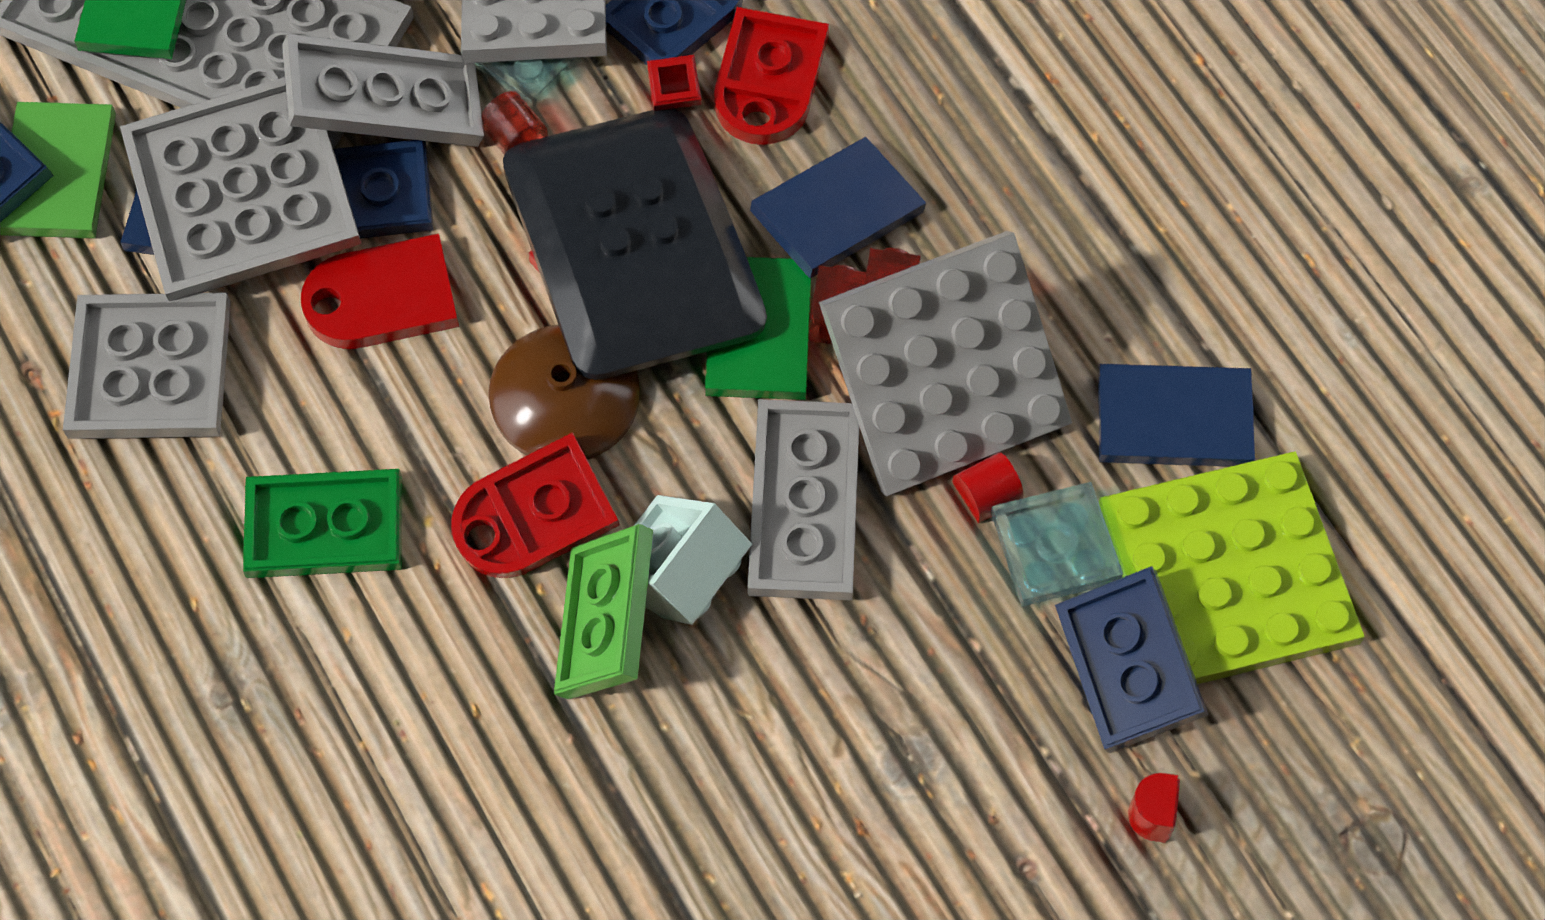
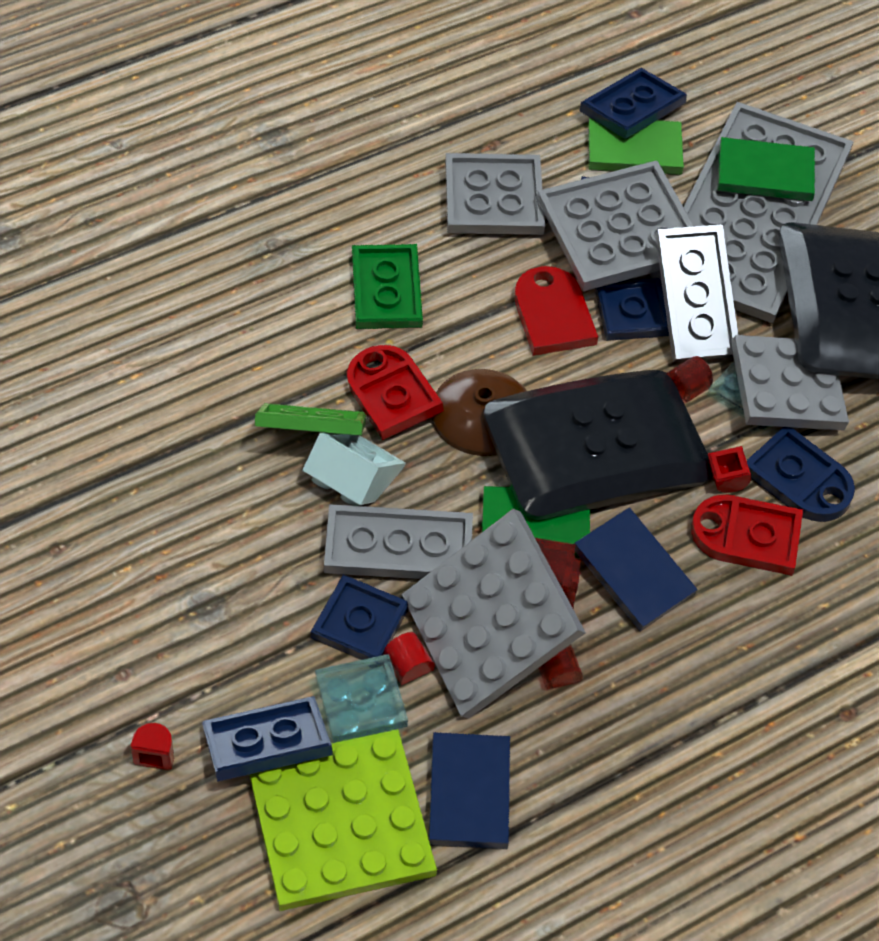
camera: 85 degrees right, 10 degrees down
(926, 551) = (359, 619): none -> dark blue tile

